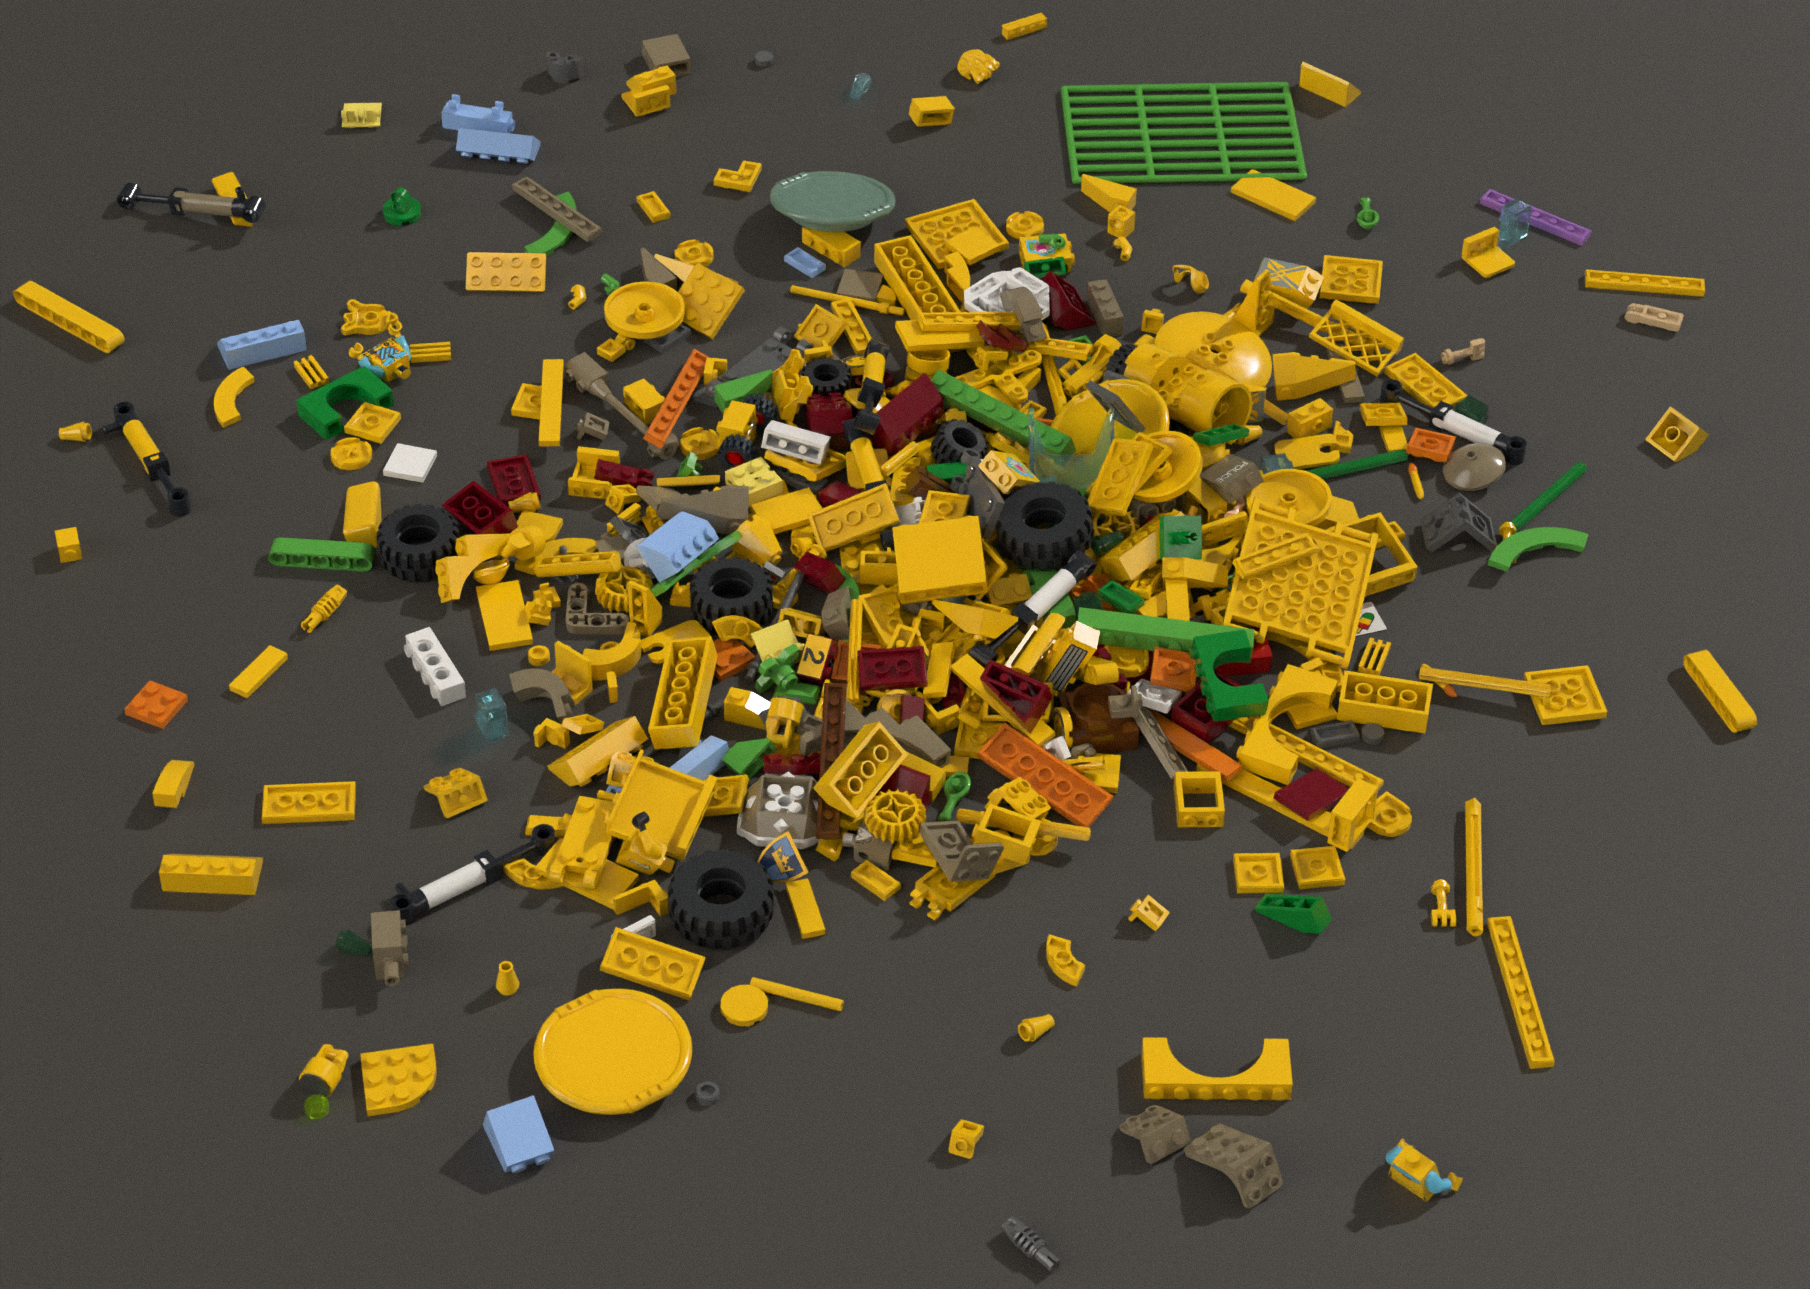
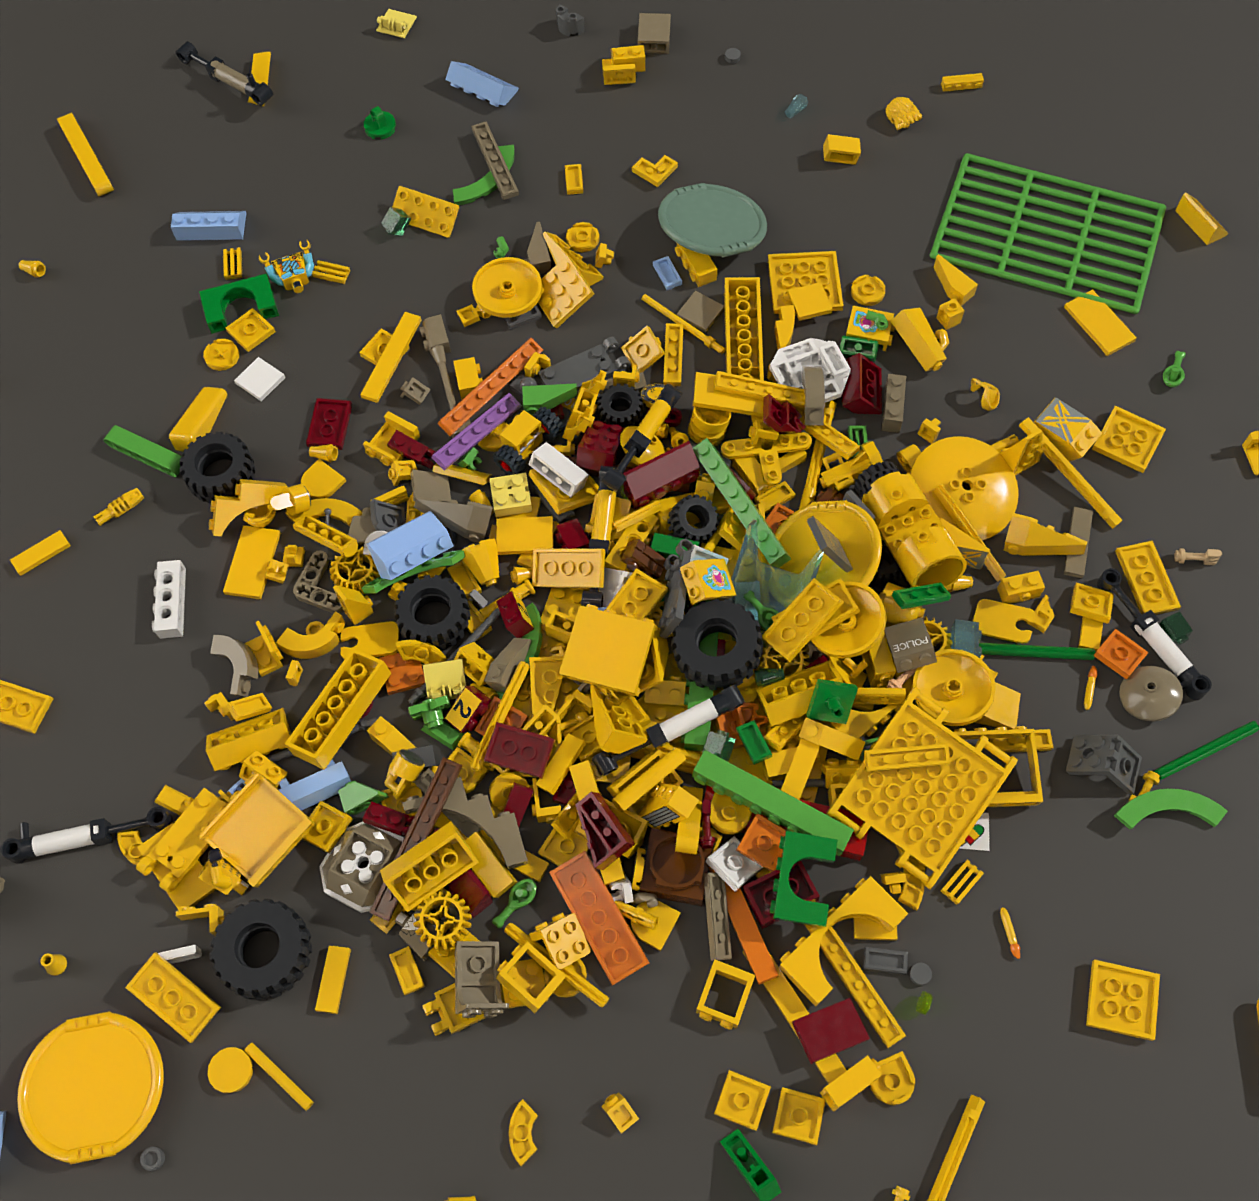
camera: 25 degrees right, 20 degrees up
(154, 461) = (70, 316): black piece -> none
(226, 395) = (154, 272): yellow tile -> none
(367, 319) = (300, 224): yellow tile -> none
(457, 791) = (119, 738): yellow bracket -> none
(477, 118) = (478, 53): light blue brick -> none
(480, 287) = (395, 221): none -> clear green brick
(480, 511) = (278, 454): dark red slope -> none
(491, 715) = (179, 672): clear light blue brick -> none
(538, 655) = (258, 613): yellow tile -> none
(579, 296) = (471, 253): yellow arm -> none
(685, 439) = (476, 431): none -> medium lavender tile
(727, 262) = (603, 256): none -> yellow tile
(783, 860) = (330, 925): shield -> none
(886, 295) = (717, 329): yellow tile -> none
(1102, 248) = (919, 338): none -> yellow slope
(1125, 705) = (696, 876): dark tan bracket -> none
(1364, 328) = (1114, 500): yellow fence -> none
(1385, 701) = (945, 948): yellow brick -> none
(1387, 750) = (924, 1003): none -> clear neon green tile
(1485, 682) = (1051, 960): yellow axle -> none

